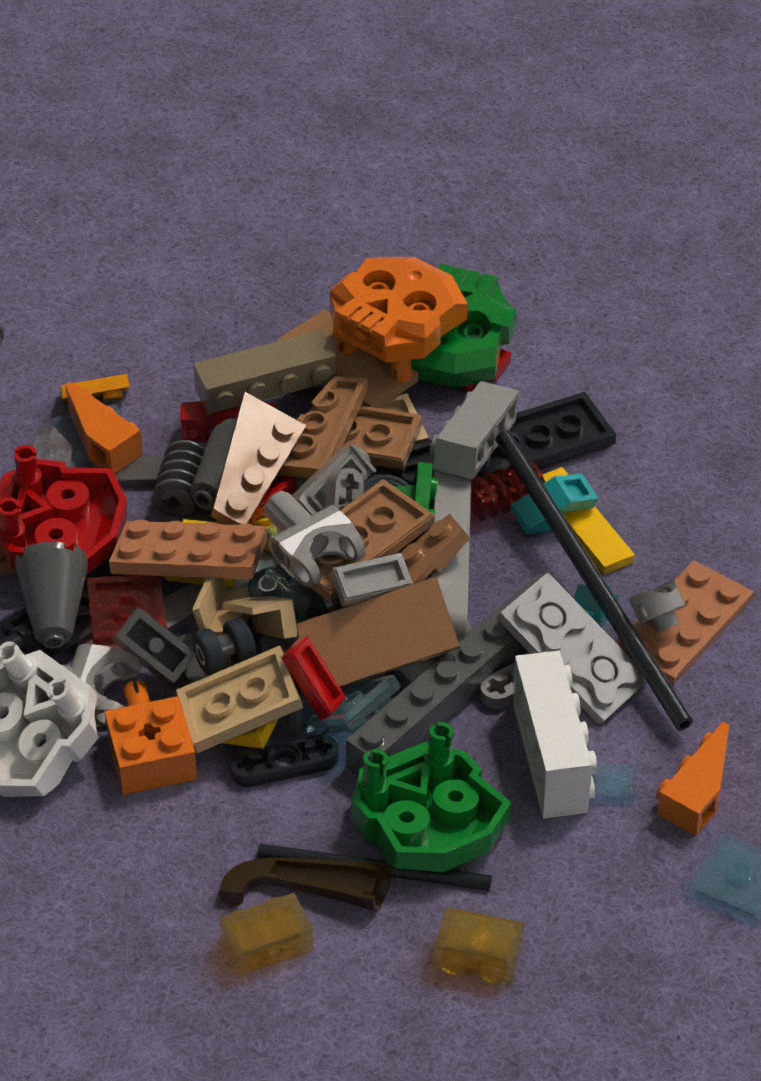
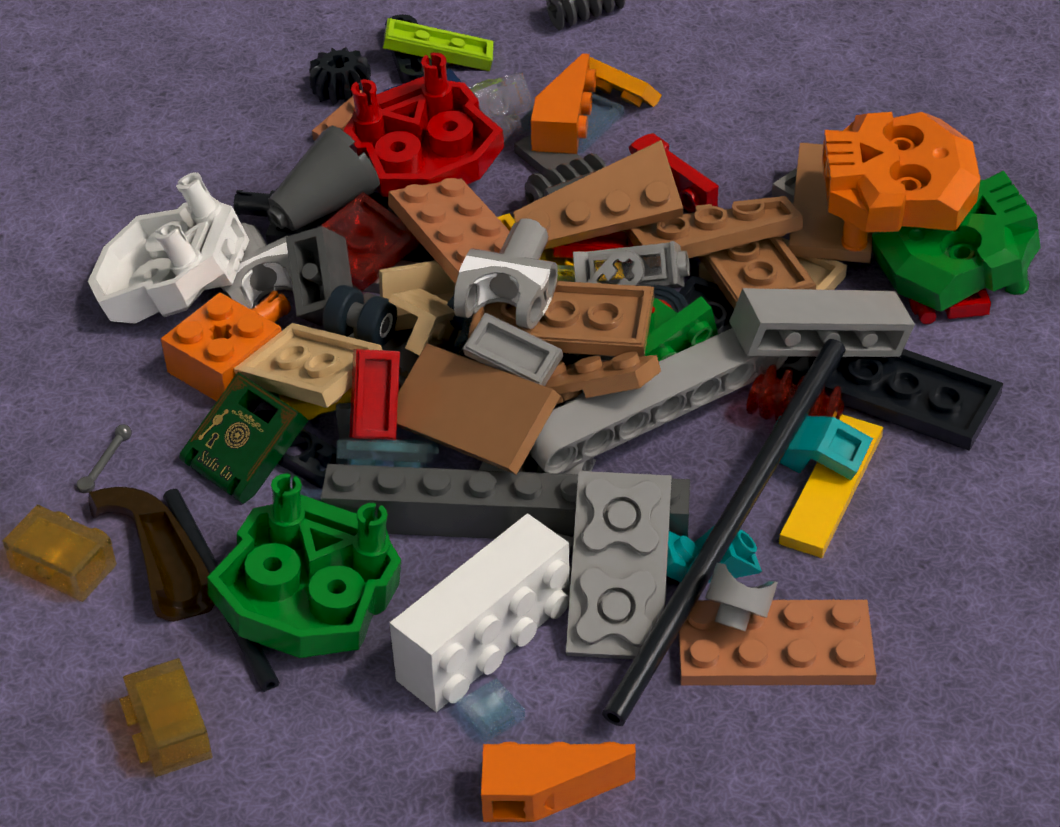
camera: 55 degrees right, 0 degrees up
(196, 893) = (87, 484): none -> dark grey hinge
(260, 782) = (237, 446): none -> dark green container
(265, 371) = (737, 152): dark tan brick -> none

